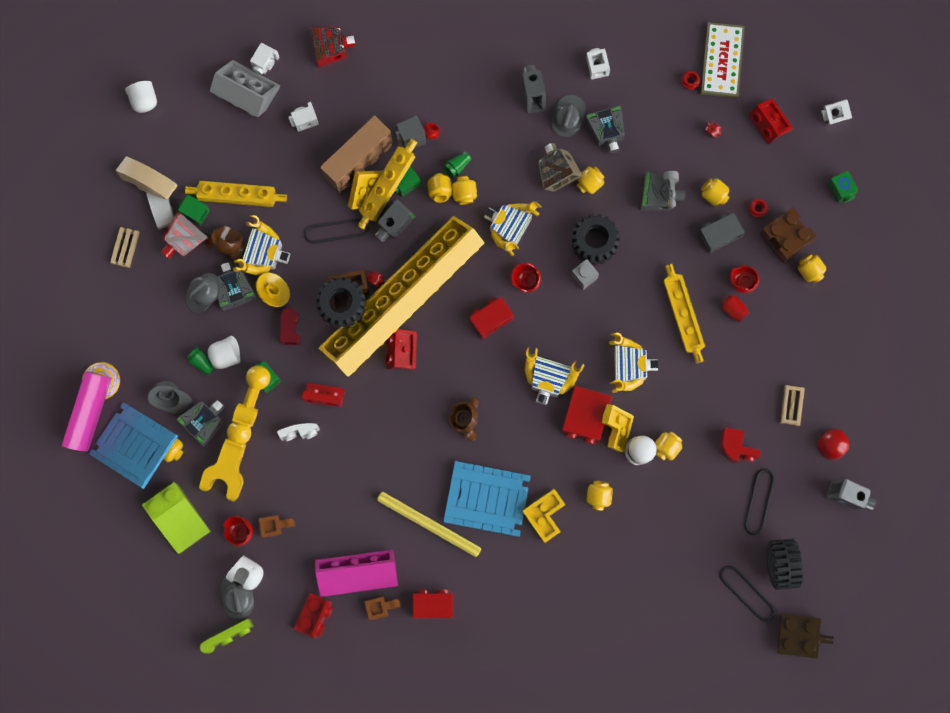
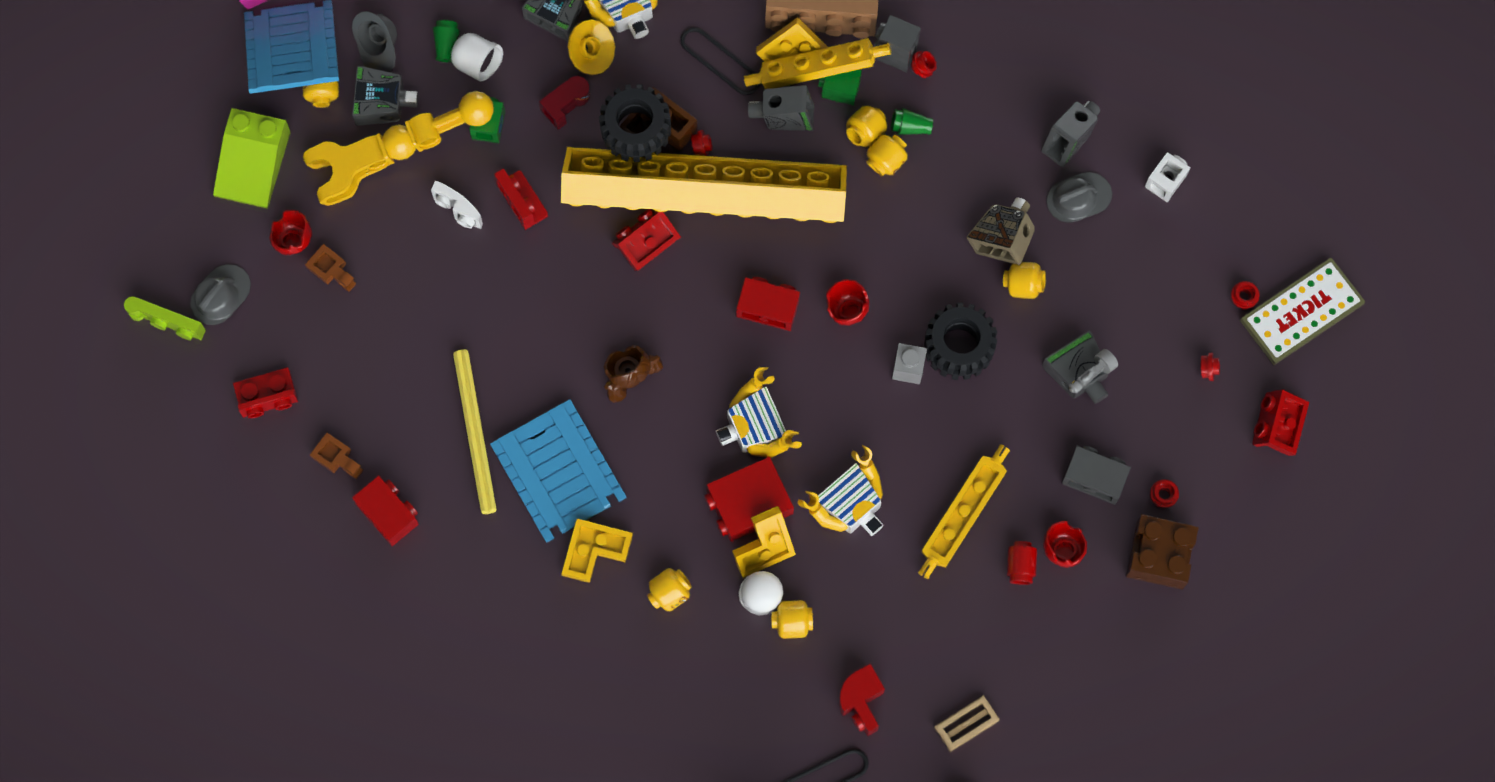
camera: 45 degrees right, 5 degrees down
(246, 573) = (251, 285): white helmet -> none
(356, 573) = (351, 397): dark pink brick -> none
(510, 224) = (894, 235): torso -> none
(607, 127) = (1103, 248): torso -> none
(715, 192) = (1138, 429): yellow head -> none
(811, 268) = (1147, 611): yellow head -> none
(843, 112) = (1368, 496): white brick -> none
(843, 187) = (1277, 569): green brick -> none

